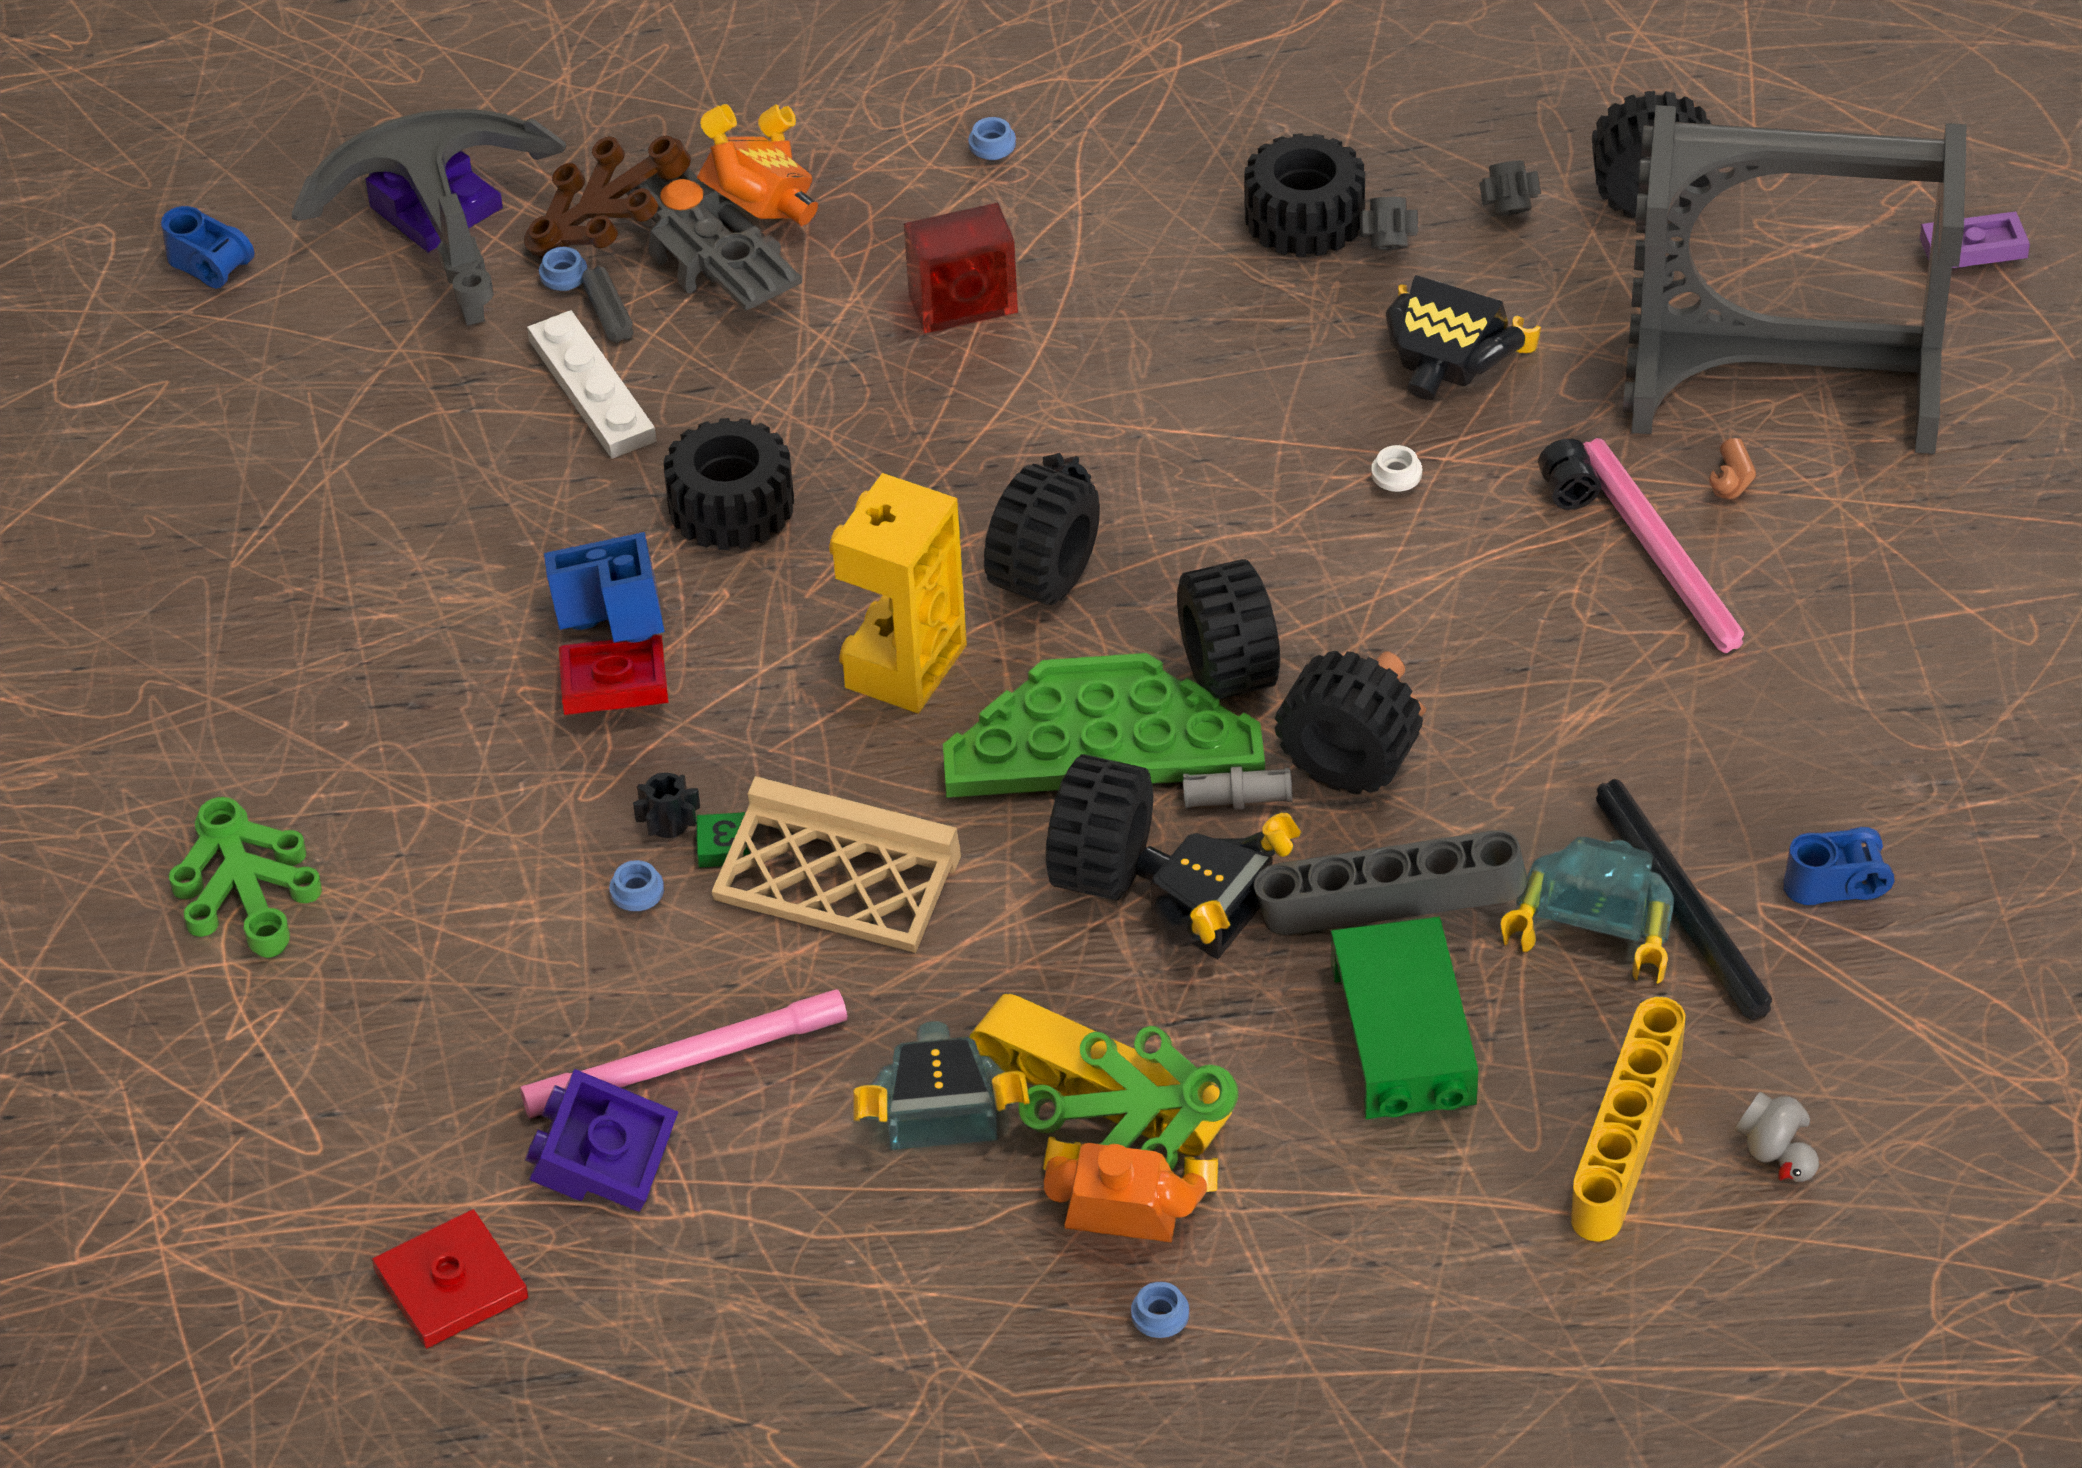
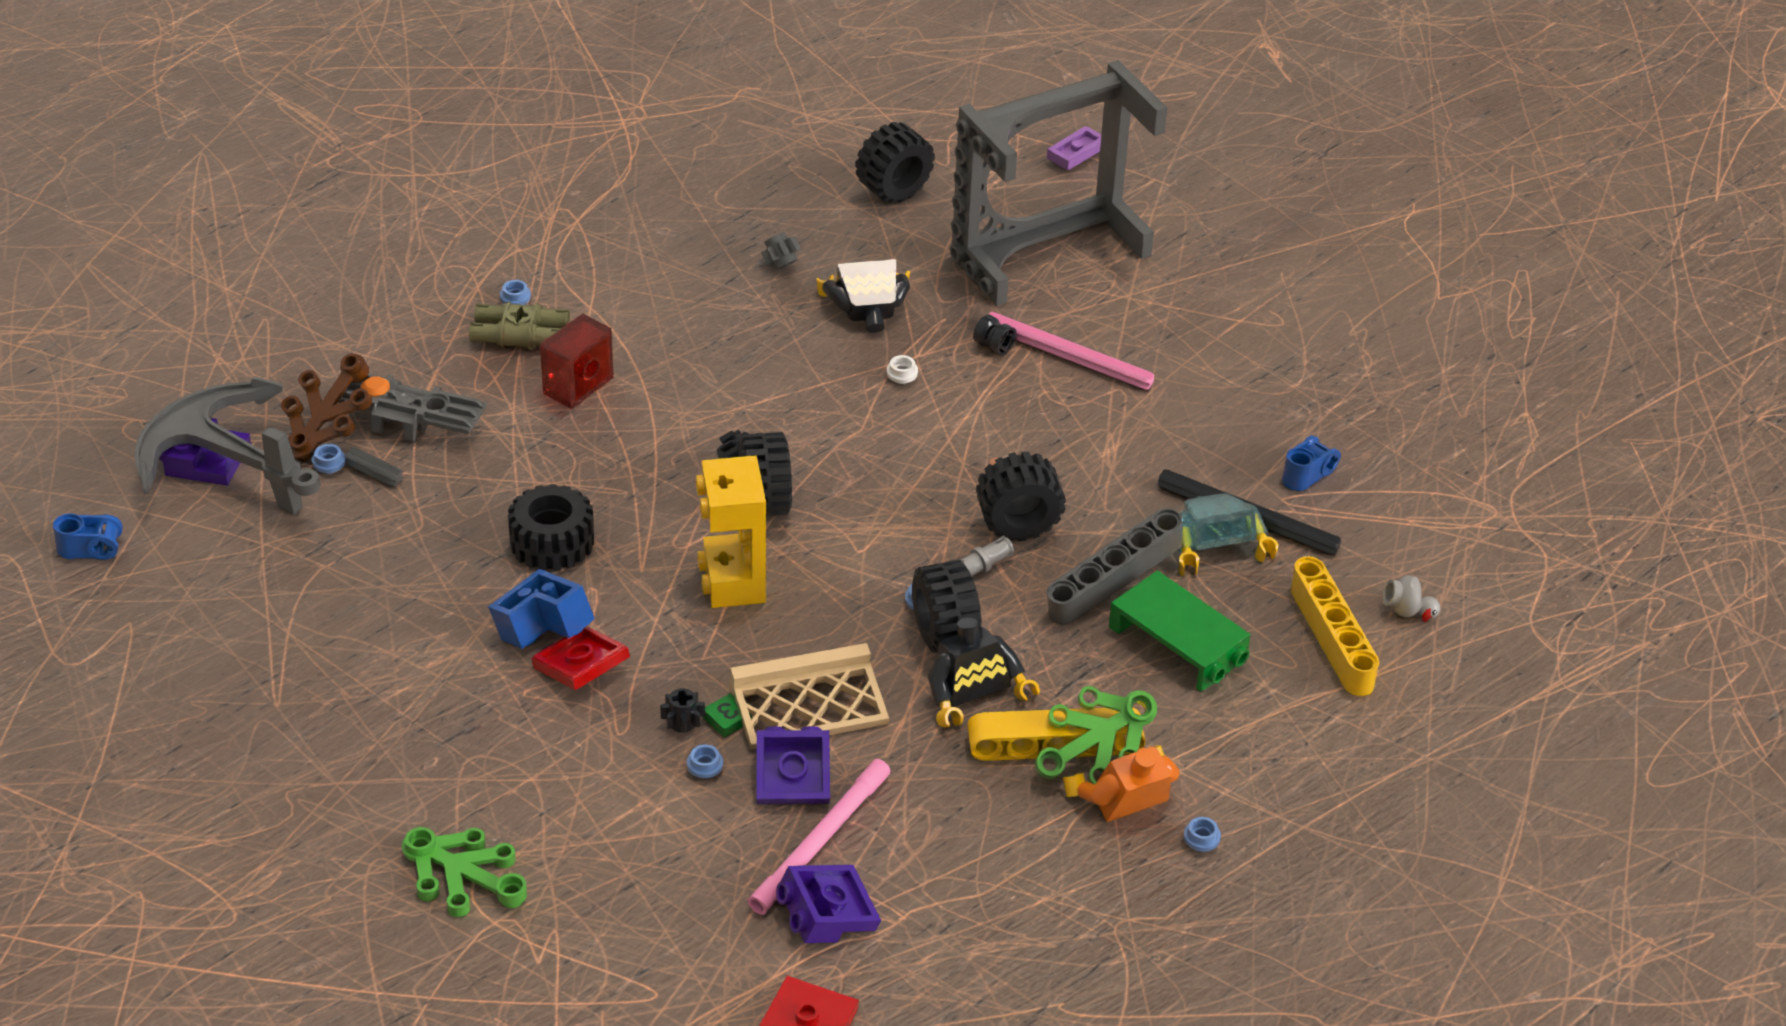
camera: 40 degrees left, 5 degrees down
(591, 384) = (405, 513): white plate -> none
(726, 945) = (793, 766): none -> dark purple plate
(757, 171) = (407, 359): orange torso -> none
(939, 1091) = (987, 780): torso -> none
(950, 180) = (516, 324): none -> olive pin
(1065, 929) = (971, 668): none -> black torso
(1104, 709) = (876, 563): bright green plate -> none
(1207, 884) = (1021, 609): torso -> none
(1228, 629) = (913, 478): black tyre -> none
(1304, 194) = (723, 253): black tyre -> none
(1510, 188) = (826, 209): dark grey gear -> none
(1737, 472) = (1072, 301): nougat arm -> none

